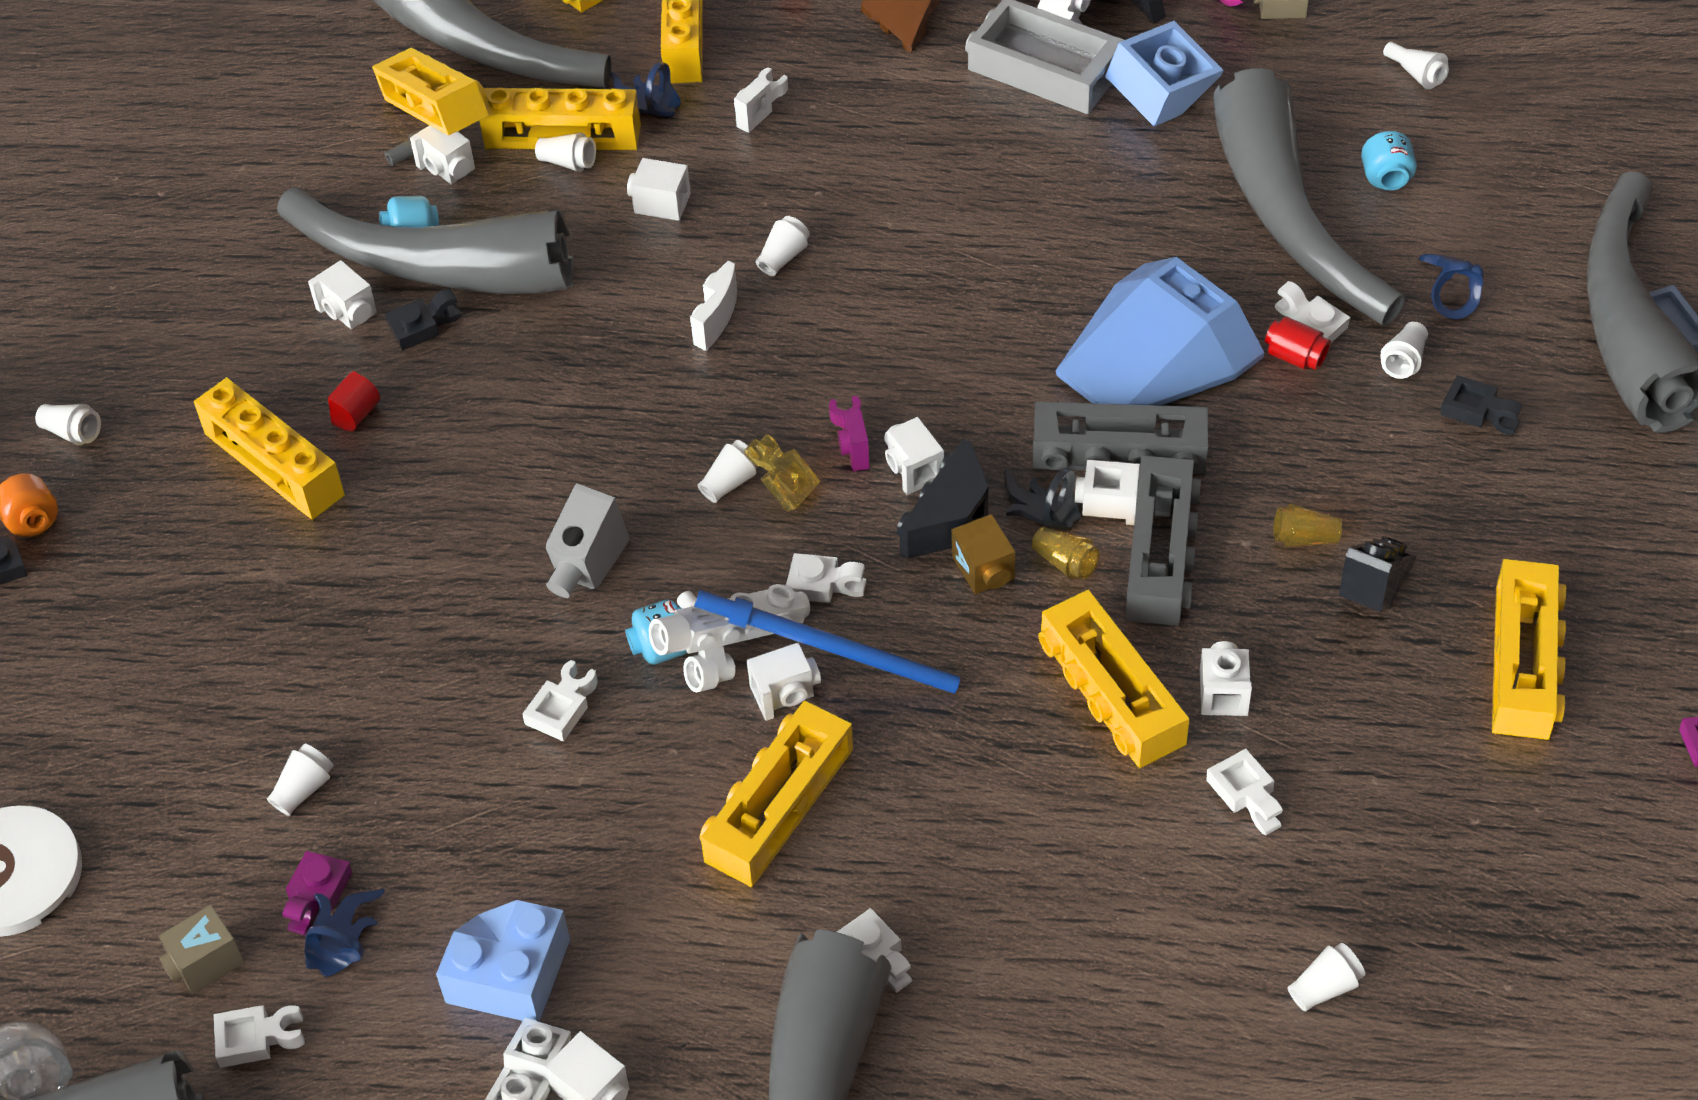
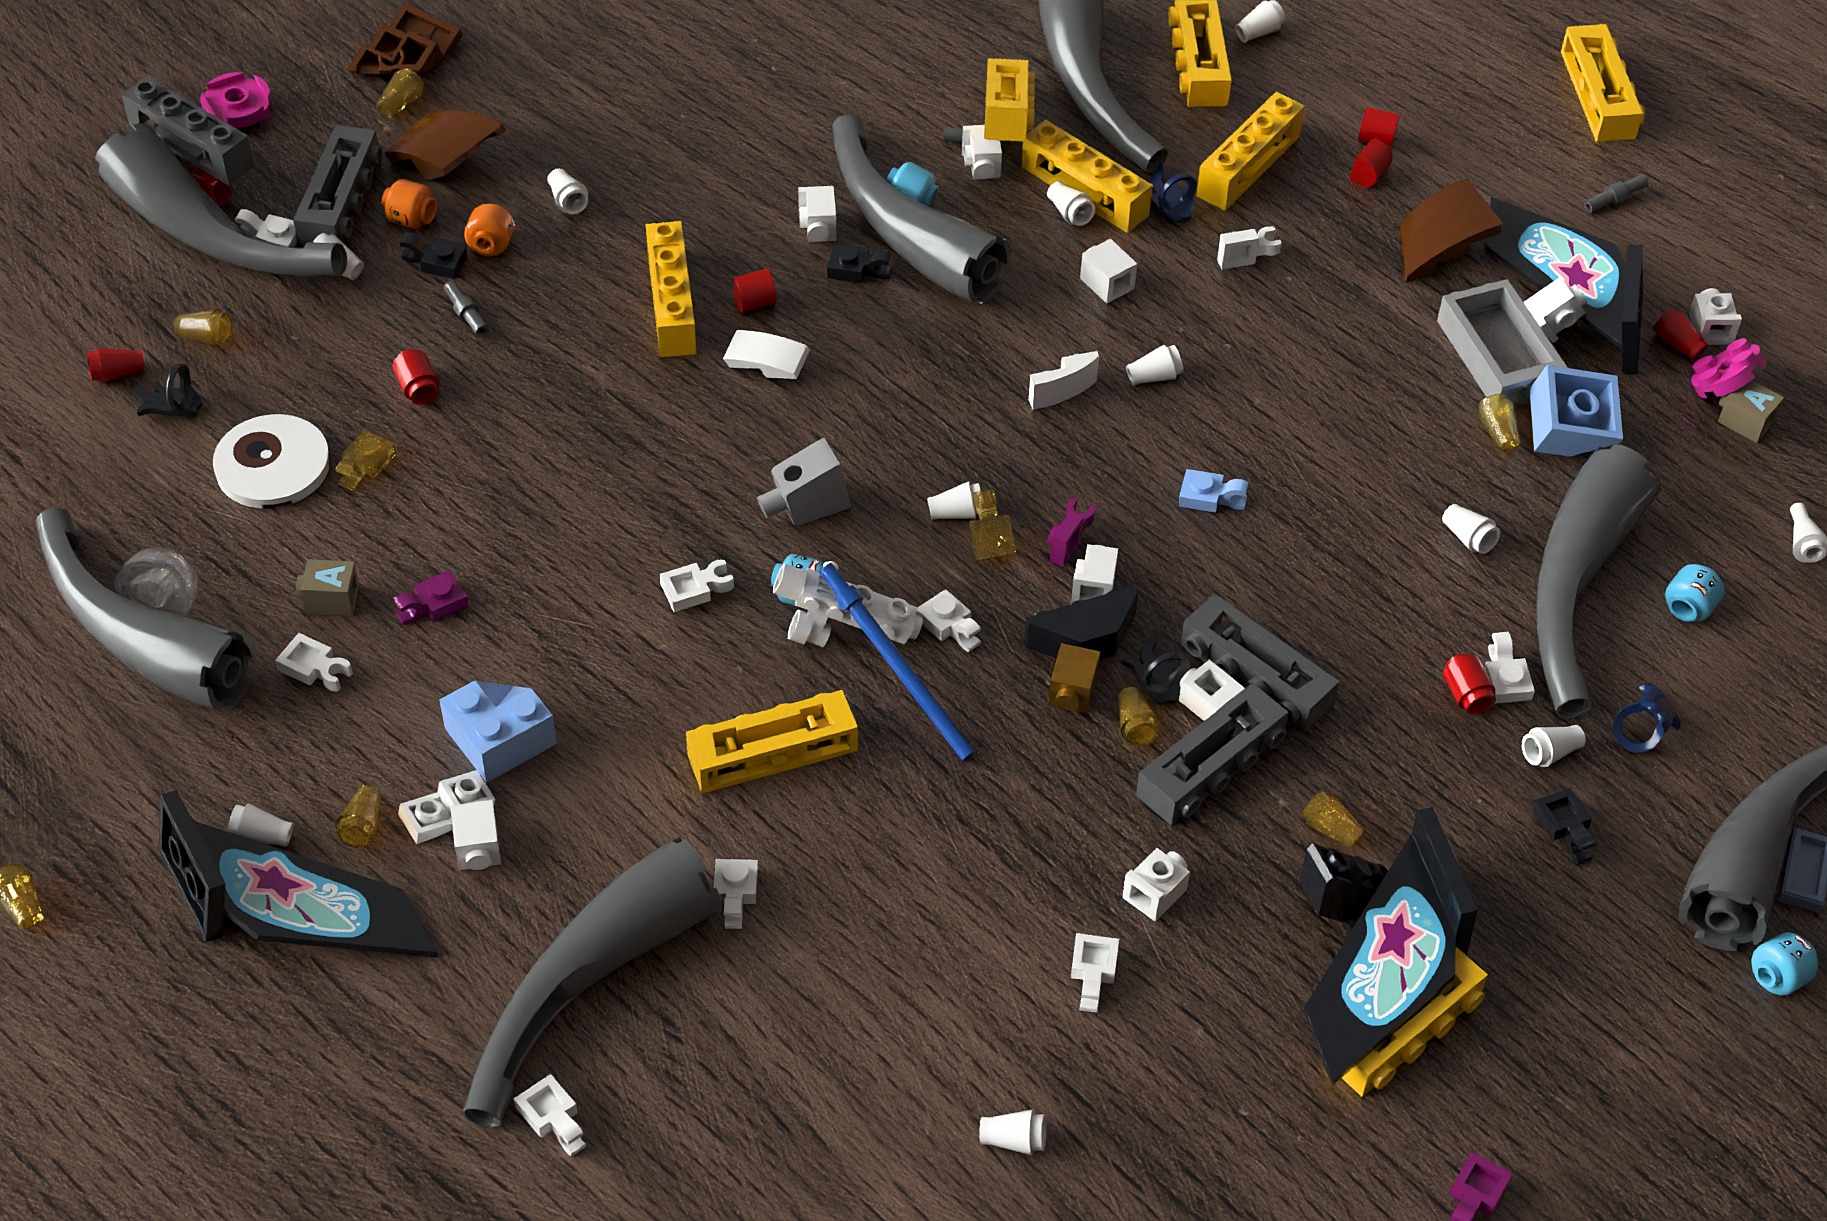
camera: 35 degrees right, 0 degrees up
(72, 594) = (466, 308): none -> dark grey bar
(86, 689) = (416, 376): none -> red brick
(105, 800) = (364, 455): none -> clear yellow plate
(300, 778) = (488, 521): white cone -> none
(332, 939) = (413, 637): dark blue piece -> none
(420, 448) = (770, 353): none -> white slope
(782, 678) = (849, 668): white brick -> none
(930, 326) = (1207, 491): none -> light blue plate
(1071, 637) = (1065, 881): yellow brick -> none
(1105, 117) = (1499, 419): none -> clear yellow cone
(1160, 339) = (1361, 614): medium blue wedge -> none
(1171, 218) = (1474, 530): none -> white cone
(1474, 591) = (1396, 951): none -> piece

